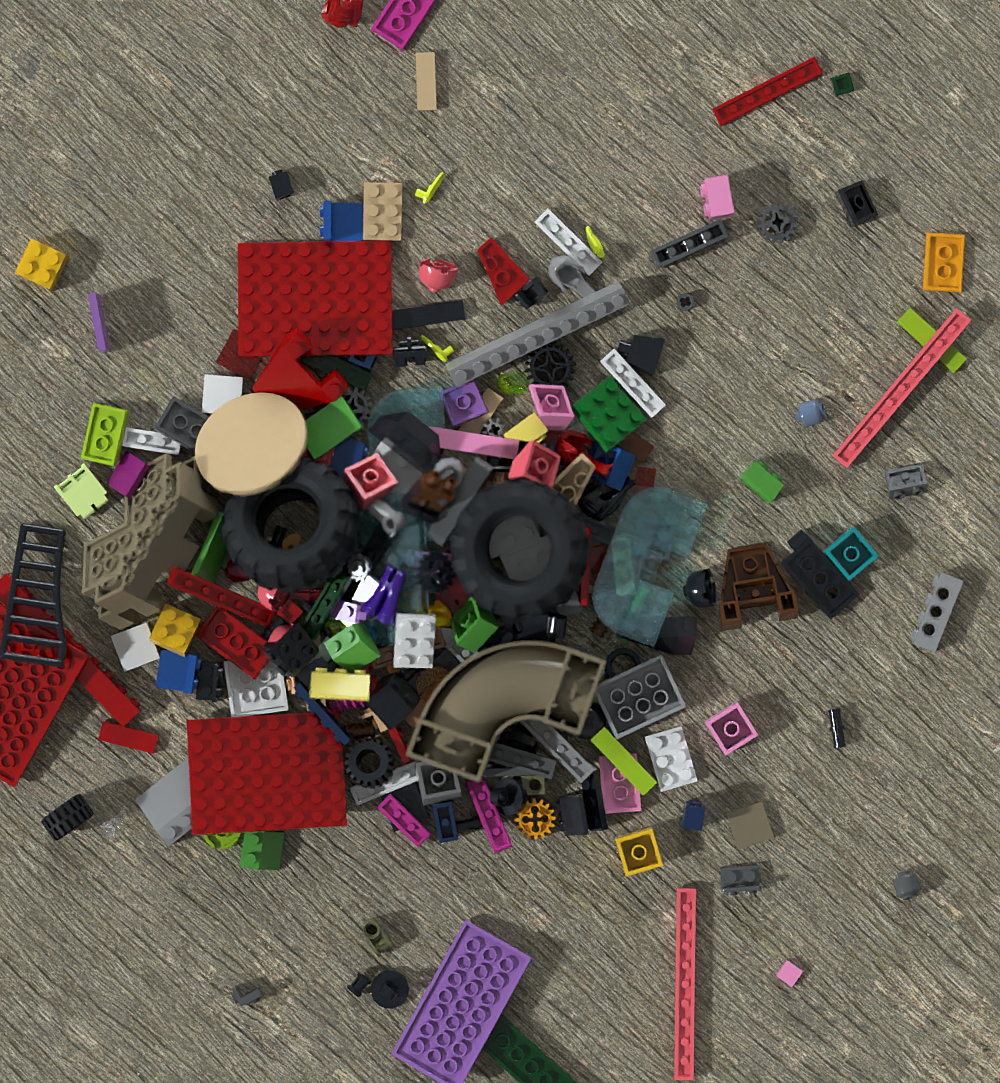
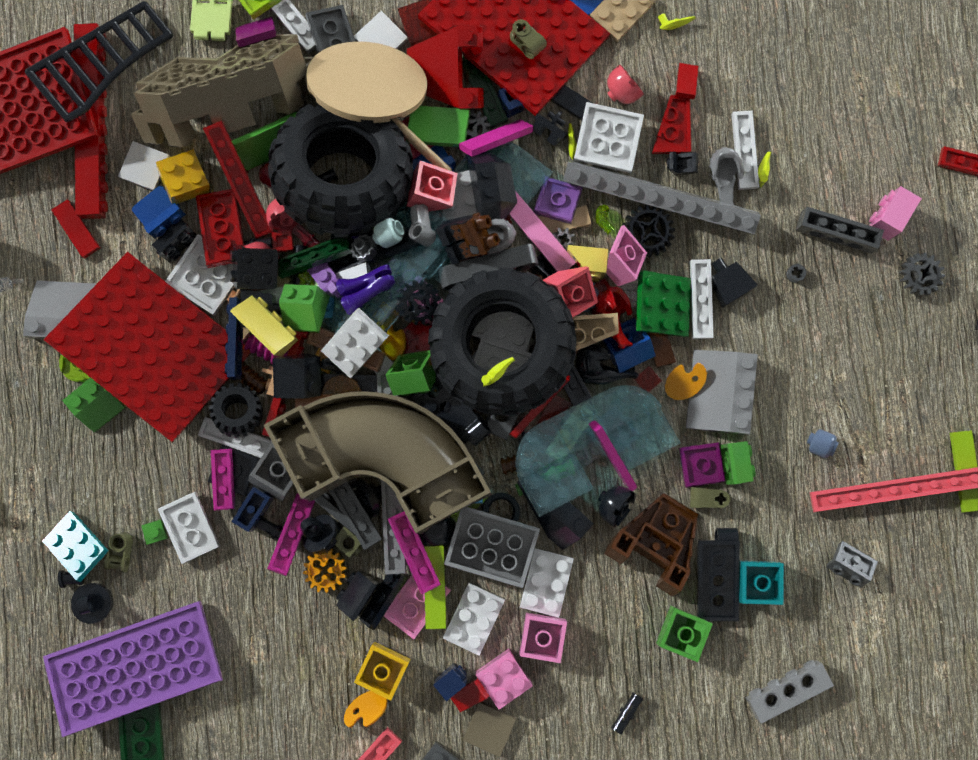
camera: 45 degrees right, 5 degrees down
(335, 455) = (420, 145): none -> tan piece
(339, 305) = (527, 39): none -> olive piece
(343, 959) = (75, 546): none -> plate
(369, 542) = (388, 233): none -> light aqua head
(379, 398) = (496, 137): none -> dark pink tile
(388, 900) = (154, 532): none -> bright green plate
(410, 875) = (188, 527): none -> white plate
(460, 323) = (608, 137): none -> white plate
(479, 228) = (686, 81): none -> red tile
(537, 577) = (496, 372): none -> neon yellow bar
(587, 749) = (414, 553): none -> dark pink tile
(653, 884) = (370, 707): none -> light orange piece
(668, 557) = (612, 455): none -> dark pink tile
(672, 460) = (680, 384): none -> light orange piece
(700, 687) = (546, 582): none -> white plate
(705, 439) = (727, 395): none -> light grey slope
(714, 814) = (470, 695): none -> red tile
(729, 781) = (504, 679): none -> bright pink brick
(737, 504) = (702, 464): none -> magenta tile
(759, 528) = (705, 498): none -> olive piece
(827, 637) = (684, 633): none -> bright green slope

